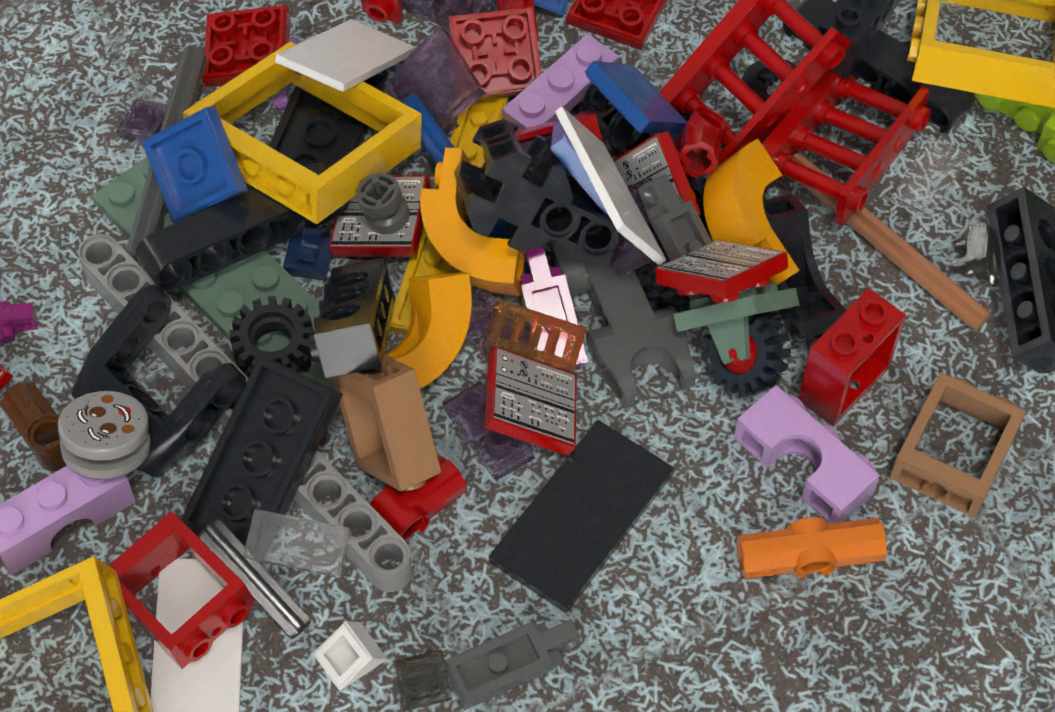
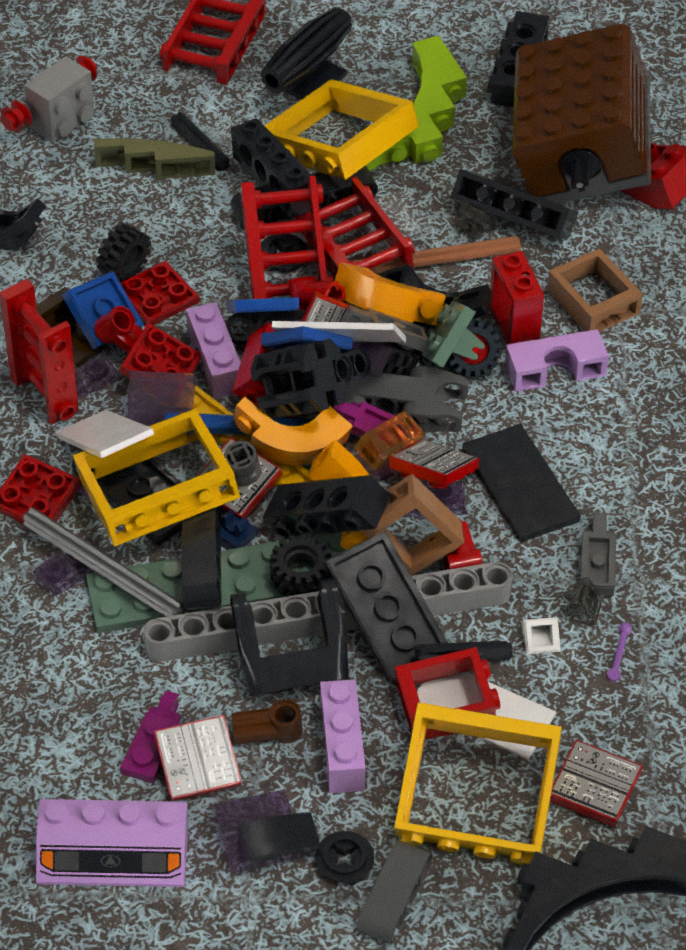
camera: 60 degrees left, 10 degrees down
(104, 434) = (322, 670): light grey head -> none
(194, 164) = (145, 539): blue tile -> none
(297, 543) = (461, 612): clear tile -> none
(722, 270) = (434, 312): tile -> none
(811, 547) = (615, 387): orange piece -> none

